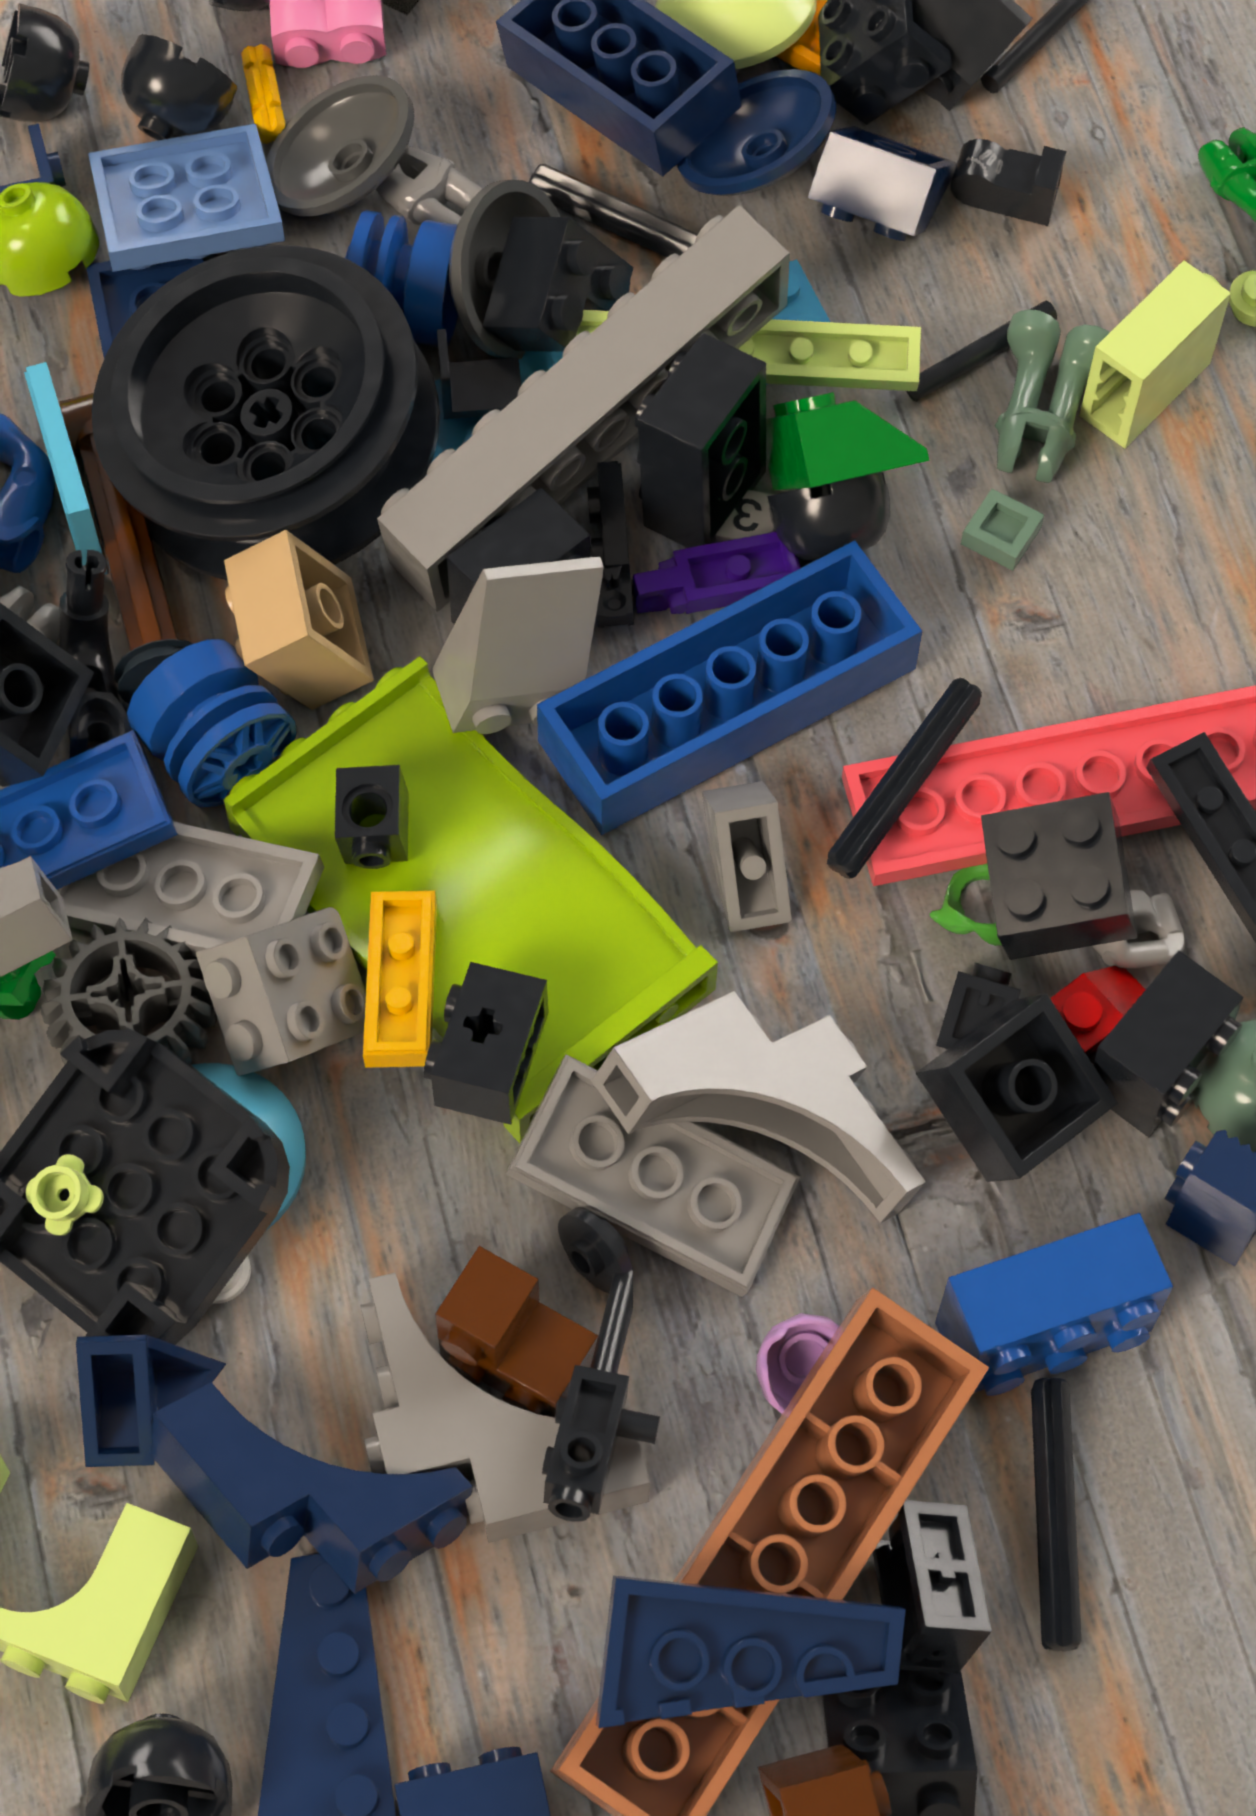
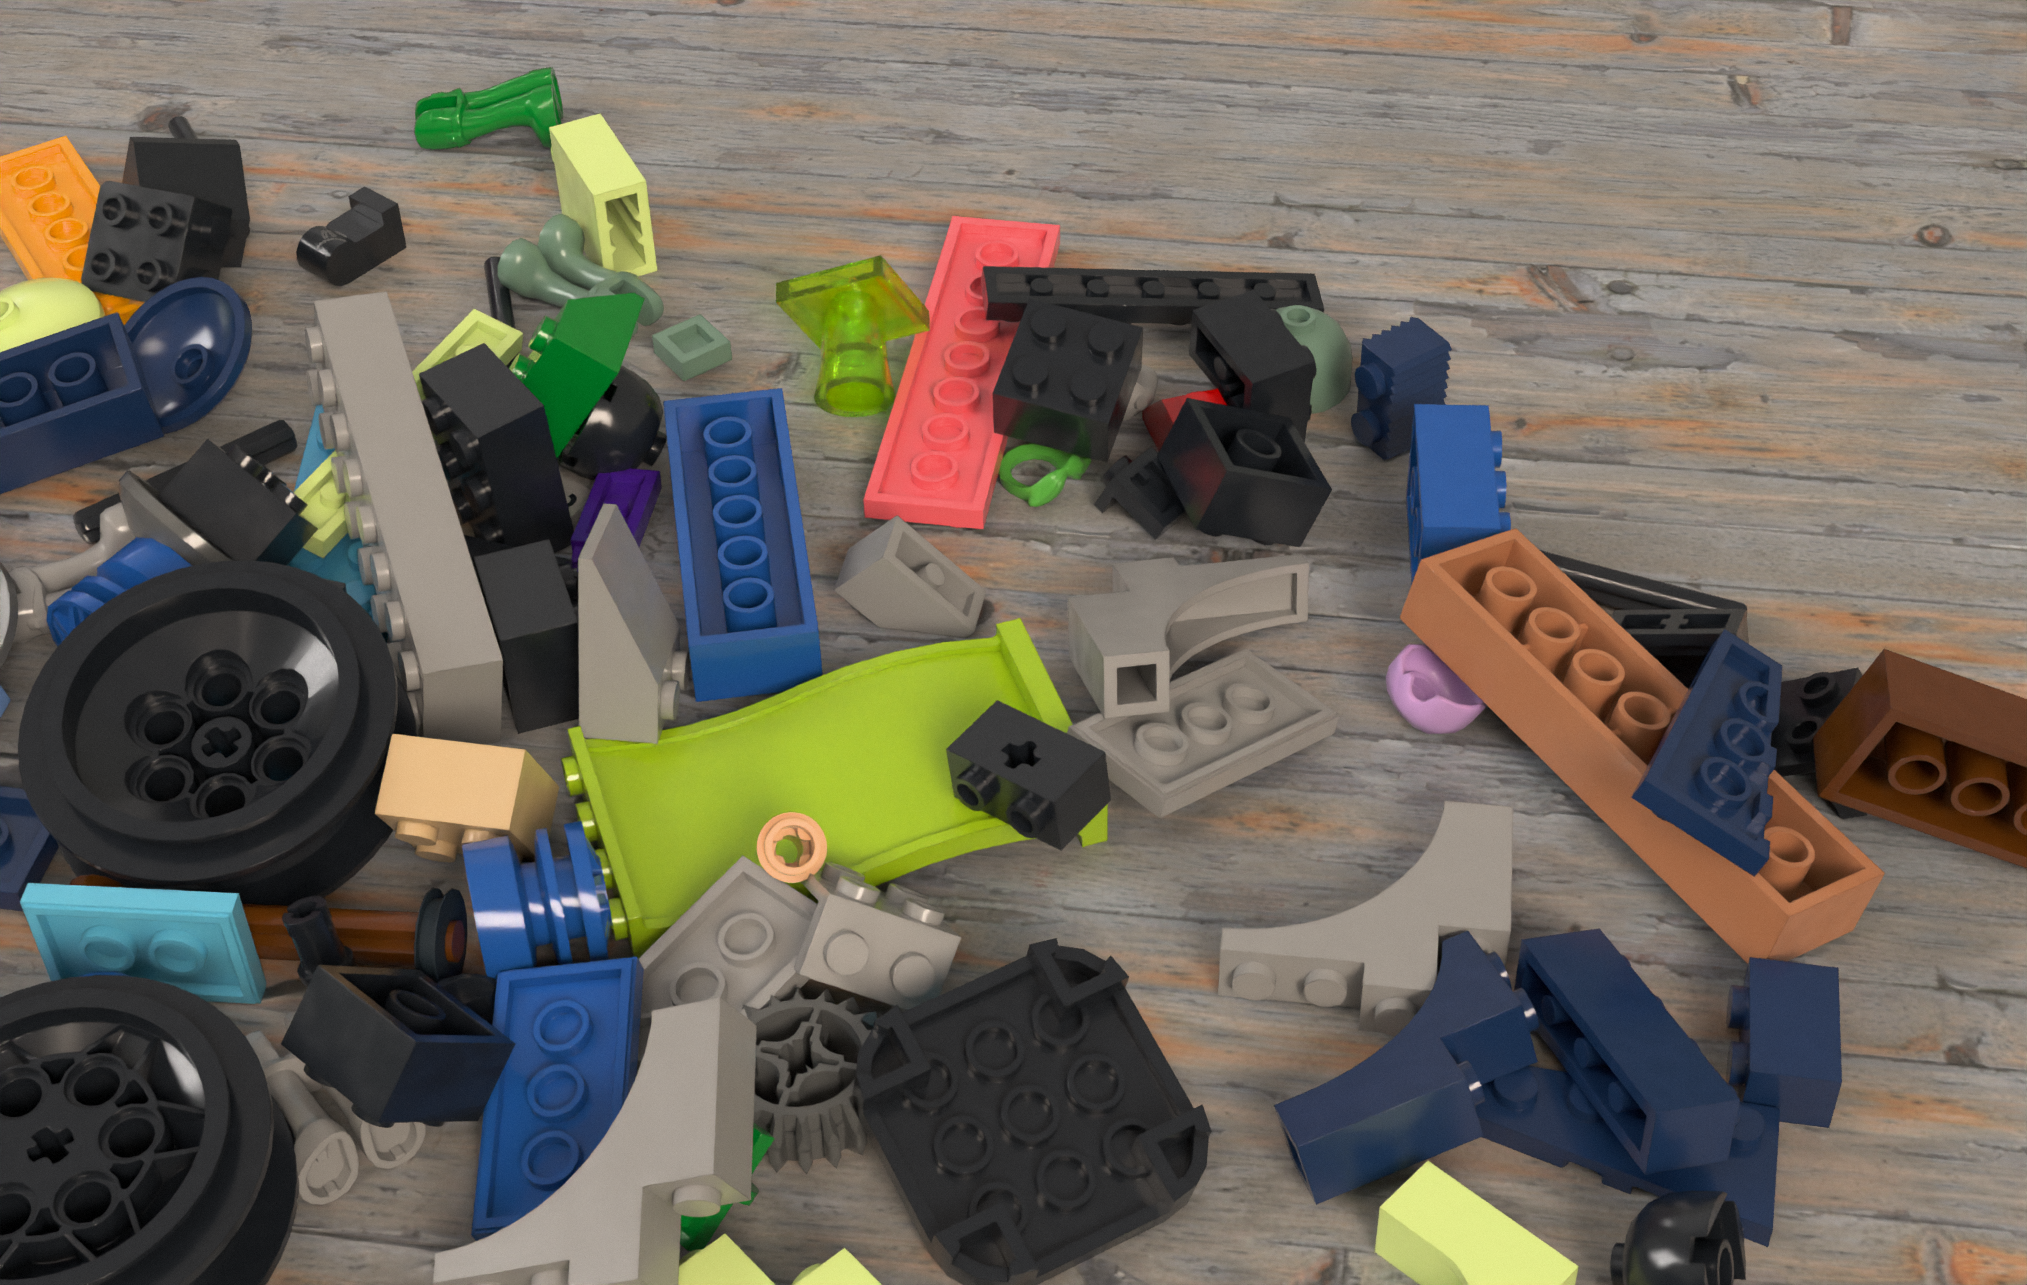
camera: 65 degrees left, 20 degrees down
(46, 1187) = (1015, 1144): yellowish green plate -> none
(124, 1385) = (1247, 1206): dark blue slope -> none
(329, 886) = (806, 836): none -> light nougat cone
(369, 792) = (718, 809): black brick -> none
(378, 1662) = (1627, 1052): none -> dark blue brick
(400, 978) = (917, 836): yellow tile -> none
(506, 1338) = (1317, 860): reddish brown brick -> none
(597, 1395) = (1451, 814): black piece -> none
(880, 182) = (284, 303): slope -> none
(904, 778) = (907, 458): black axle -> none
(1048, 662) = (850, 318): none -> clear neon green plant

